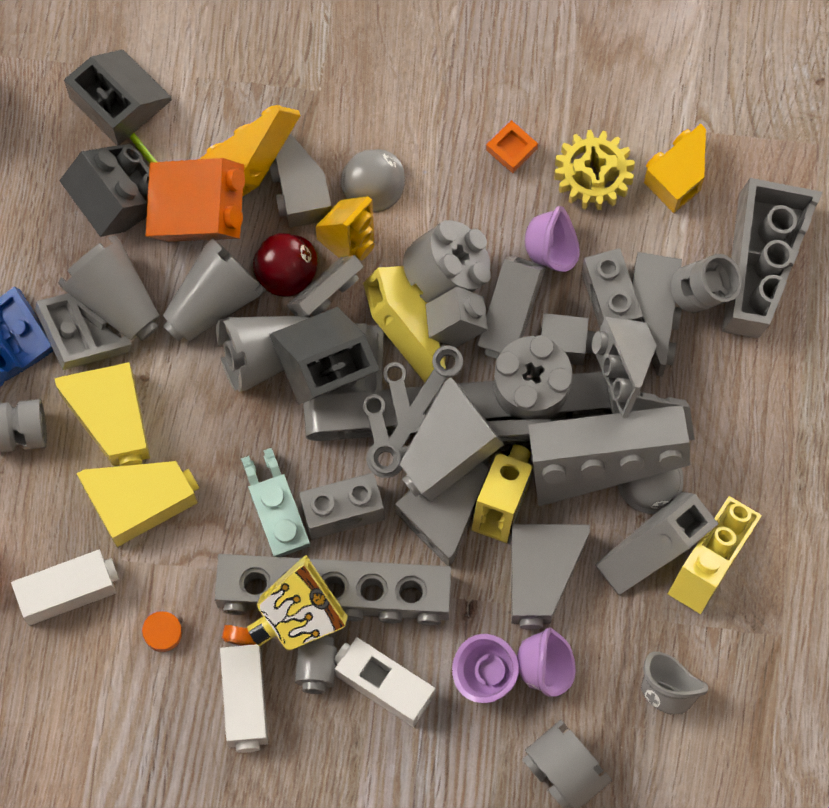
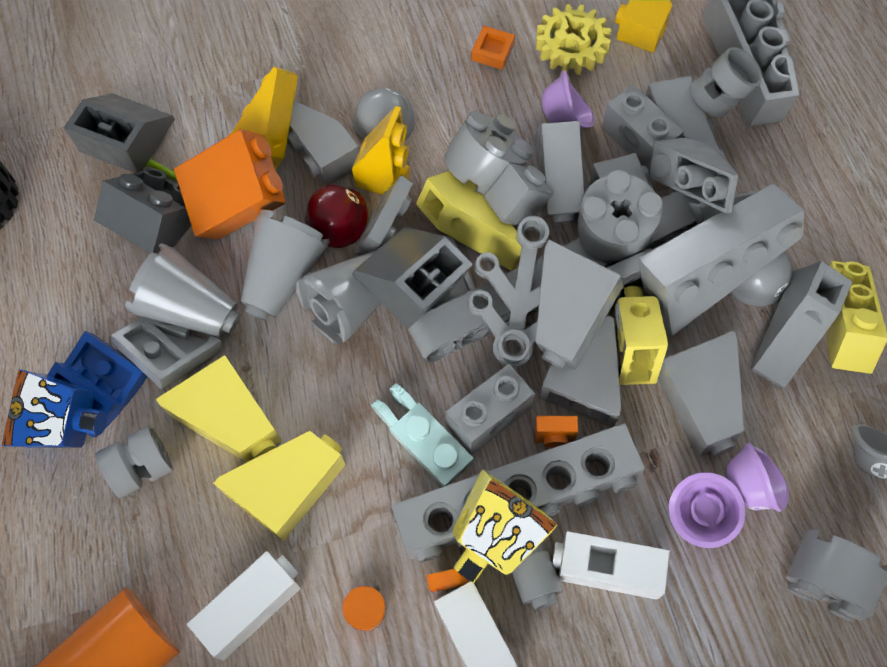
camera: 20 degrees left, 5 degrees down
(391, 548) = (555, 430): none -> orange plate

